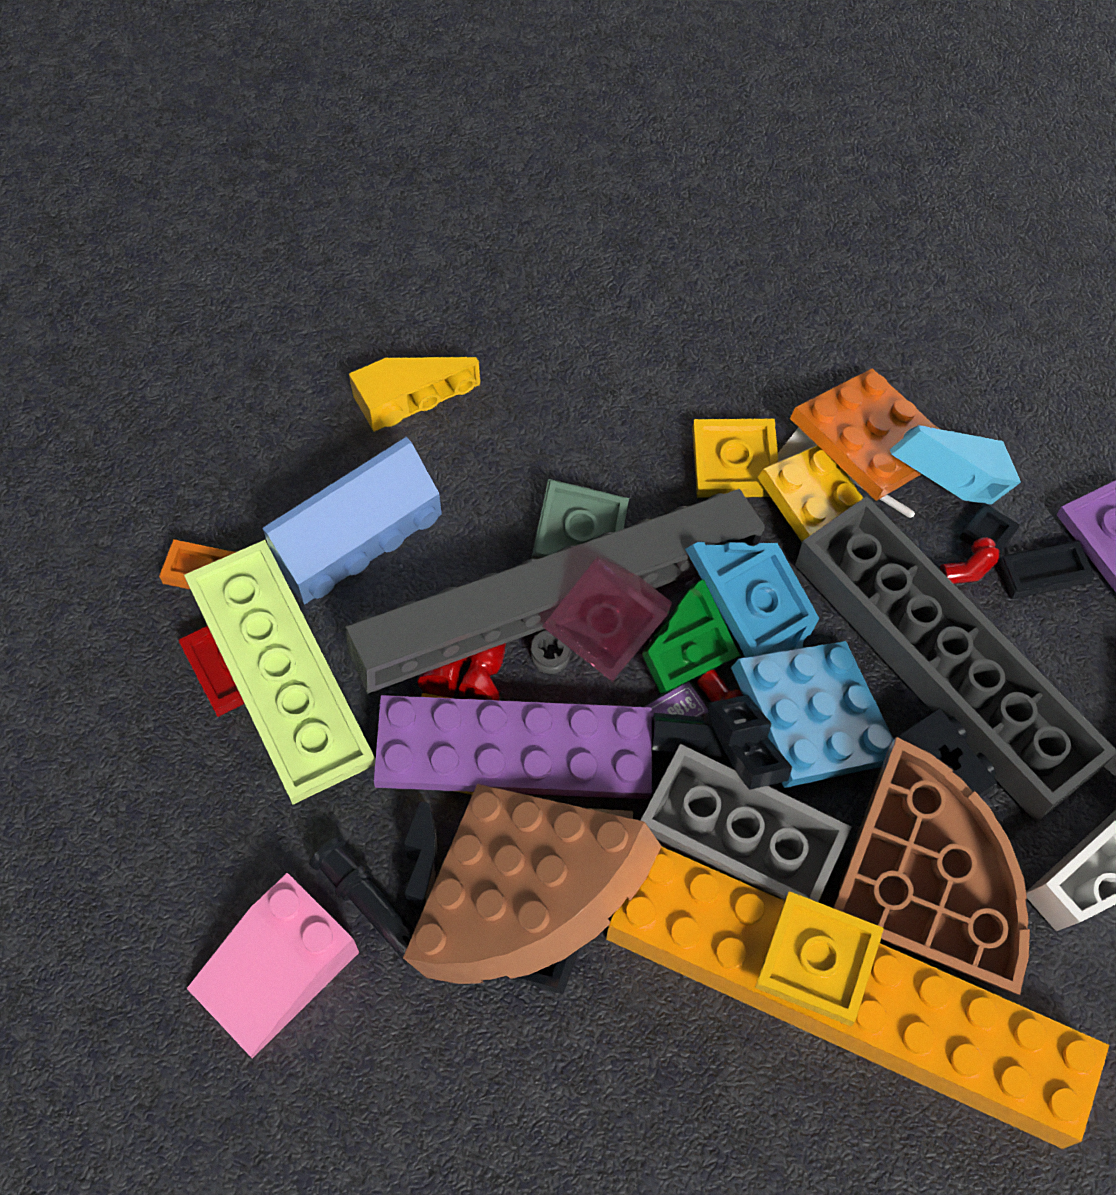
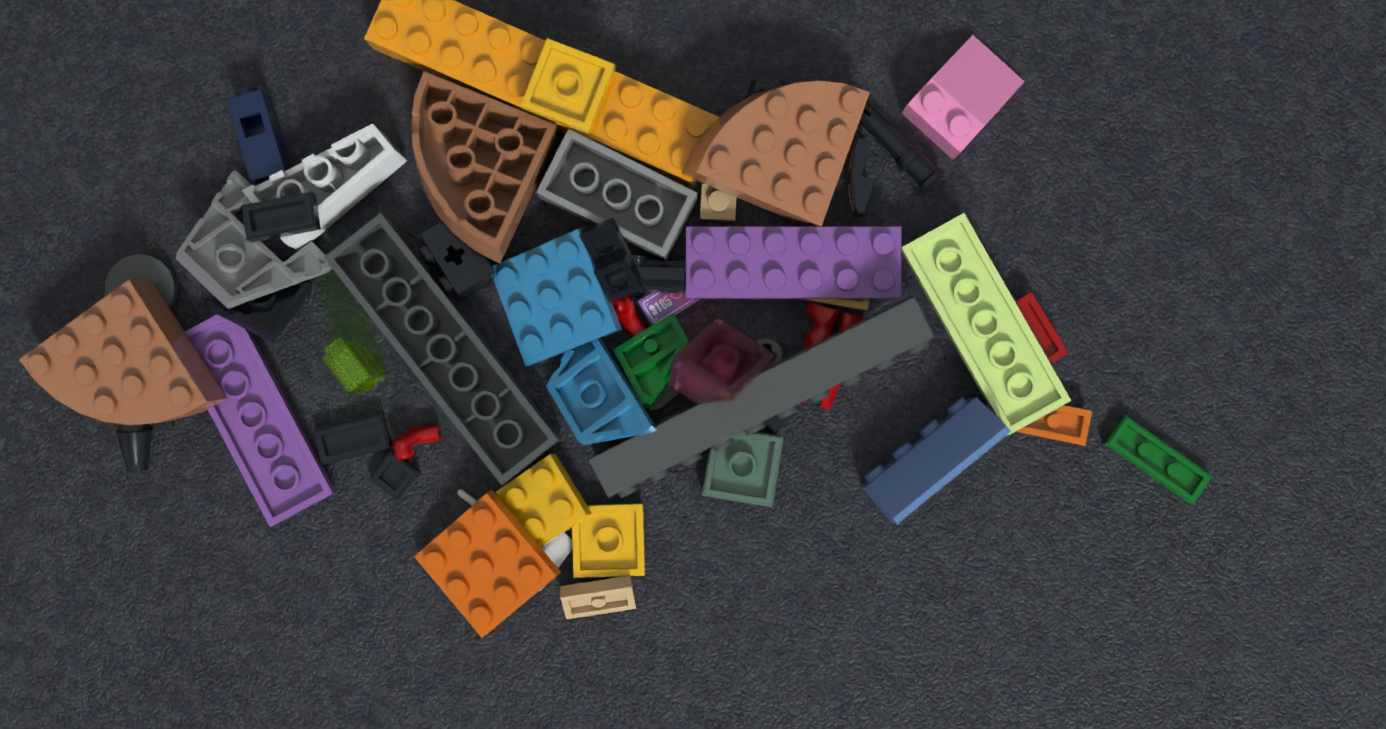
camera: 175 degrees left, 25 degrees up
(90, 531) = (1157, 459): none -> green tile
(405, 386) = (905, 605): yellow slope -> none
(761, 401) = (598, 597): none -> tan plate
(962, 463) = (415, 523): medium azure slope -> none
(1059, 632) = (353, 366): none -> clear neon green brick

